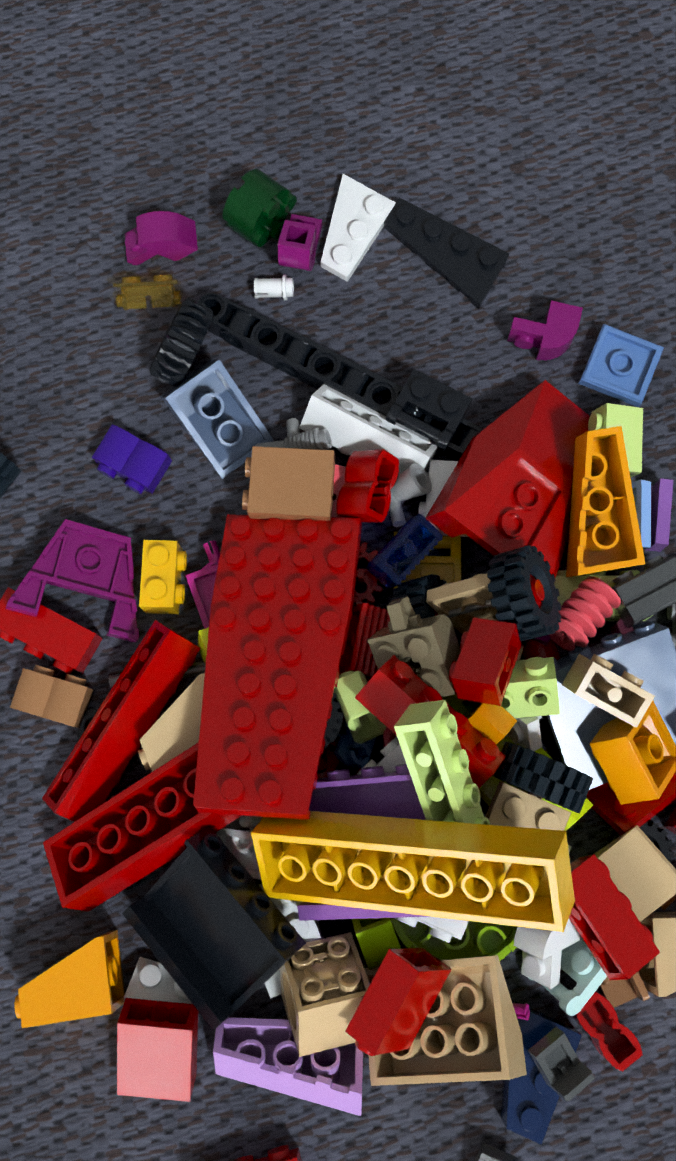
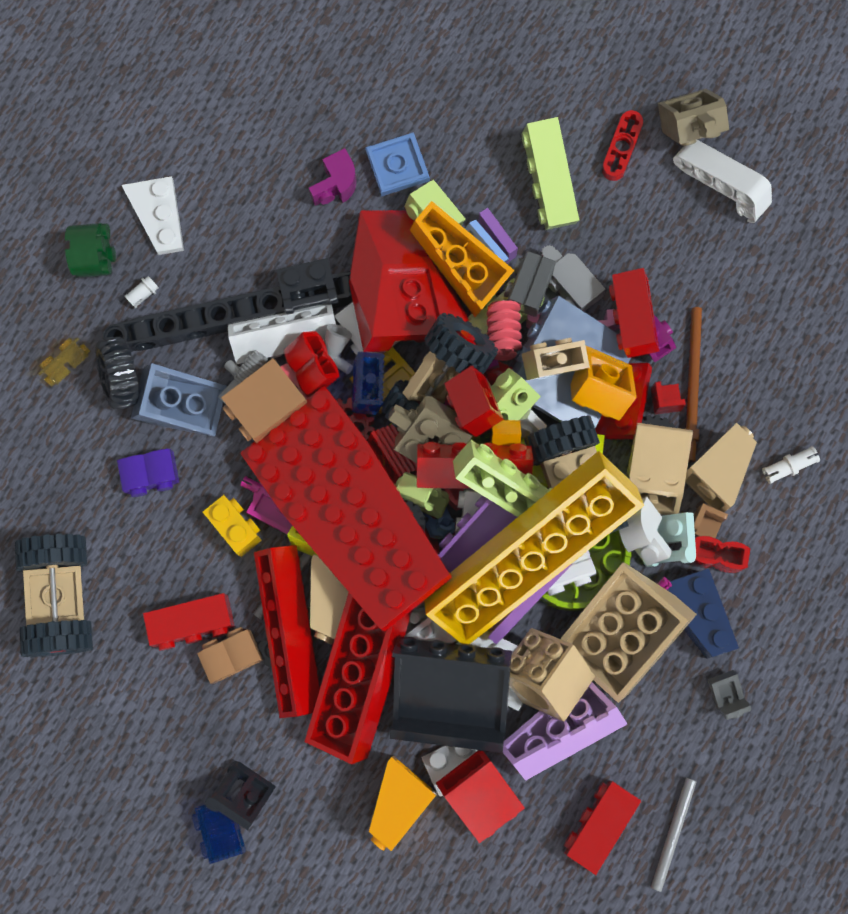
camera: 40 degrees left, 0 degrees up
(88, 563) = (179, 556): magenta wing -> none
(160, 234) = (40, 317): magenta brick -> none
(299, 242) = (133, 250): magenta brick -> none
(375, 939) = (549, 617): lime brick -> none
(397, 1001) = (591, 637): red brick -> none
(457, 255) = (240, 177): black wing -> none
(560, 1065) = (710, 592): dark grey bracket -> none
(607, 921) = (668, 490): red brick -> none

